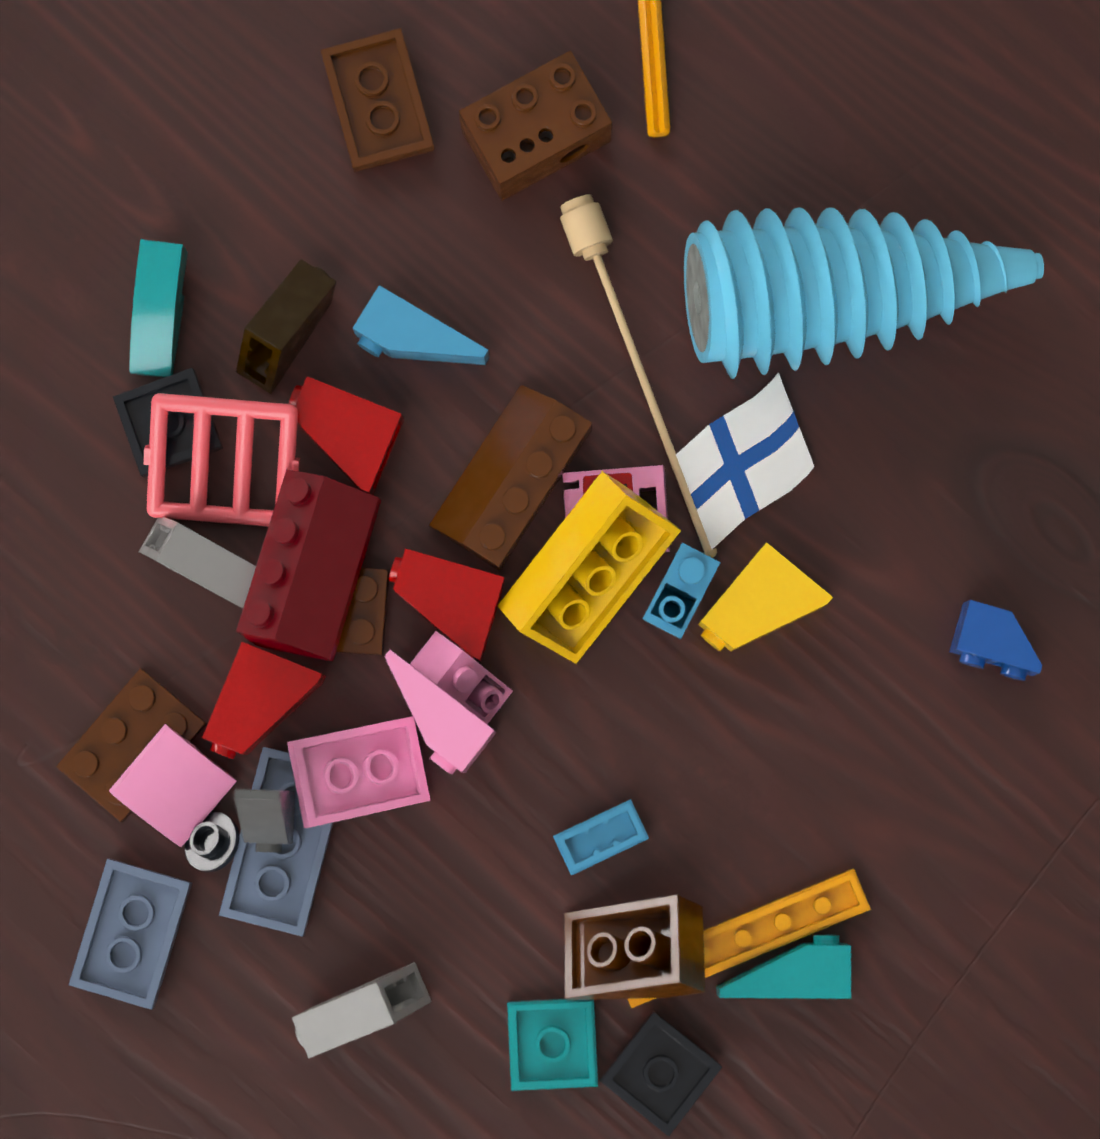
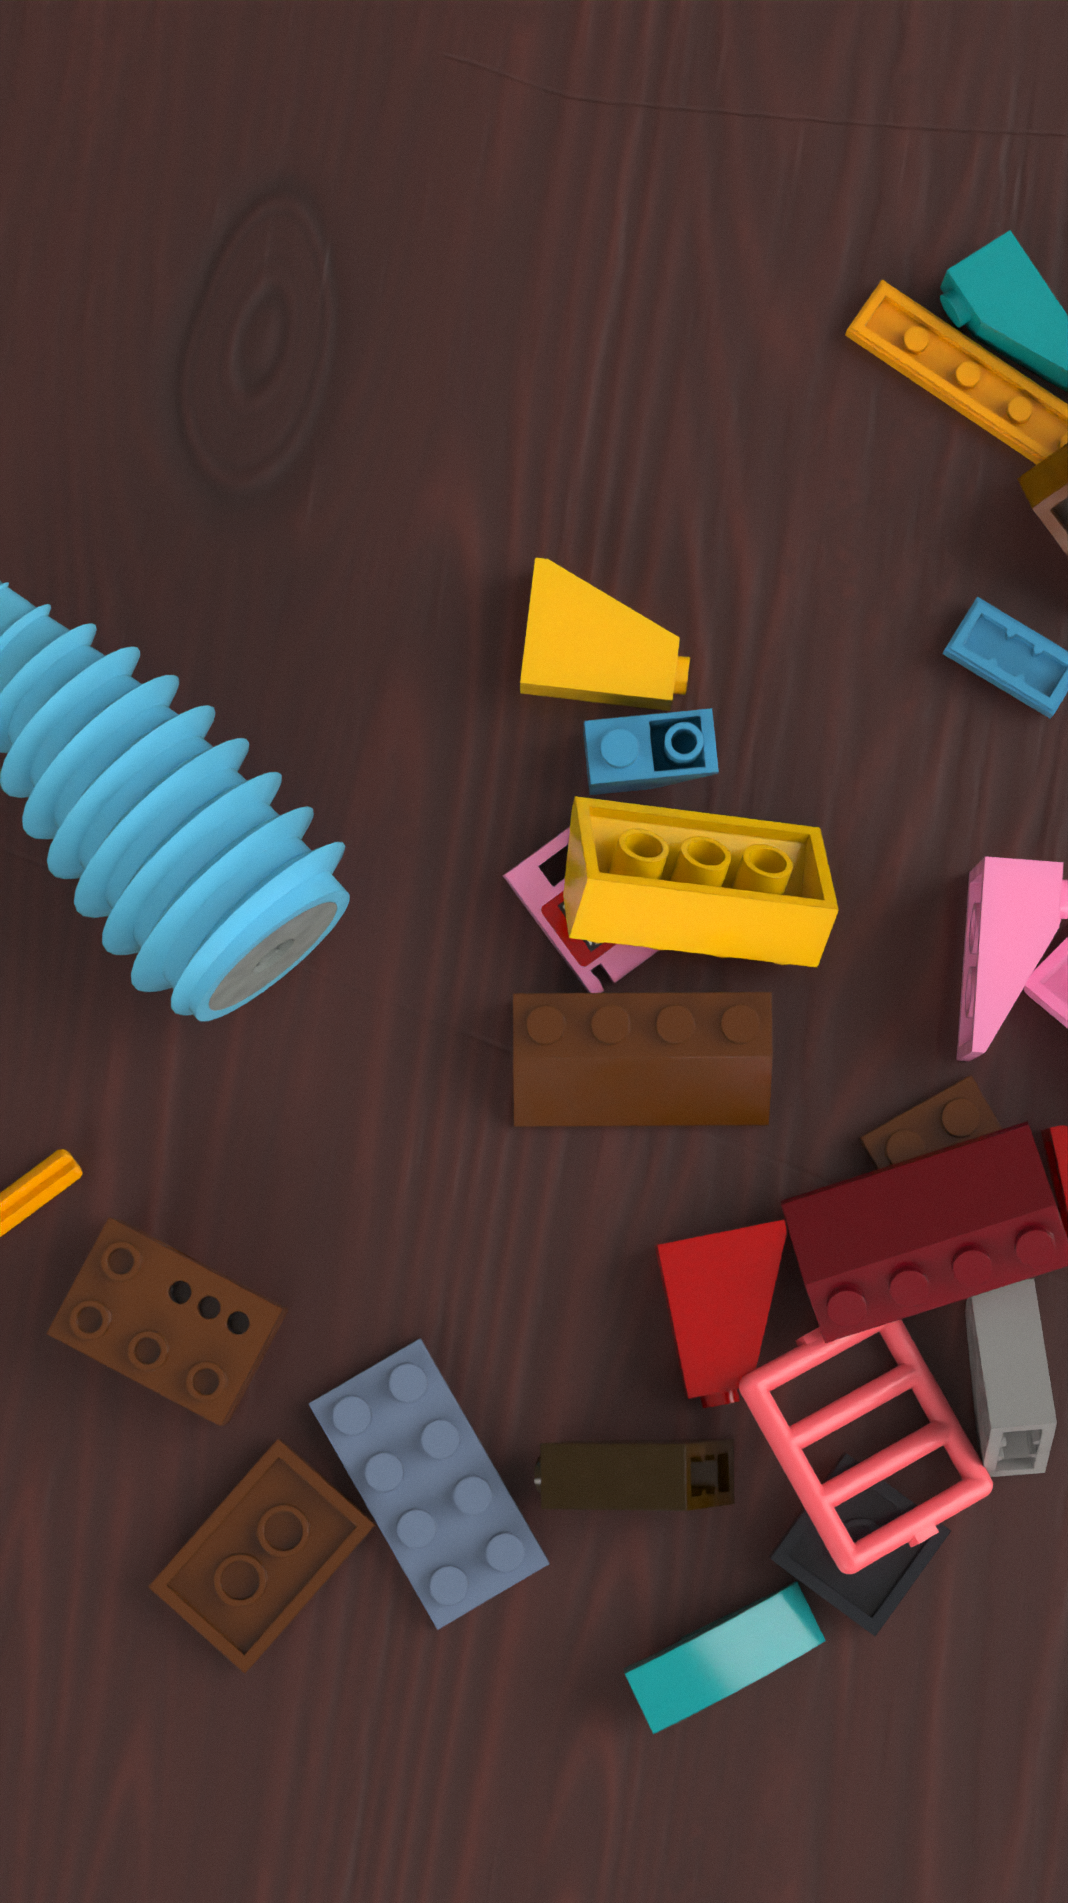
camera: 125 degrees left, 0 degrees up
(356, 214) = (429, 1483): none -> sand blue plate
(409, 333) = (543, 1314): dark azure slope -> none
(450, 597) = (845, 1033): red slope -> none
(461, 677) = (935, 956): bright pink slope -> none
(736, 460) = (435, 794): flag -> none
(995, 638) = (452, 336): blue slope -> none

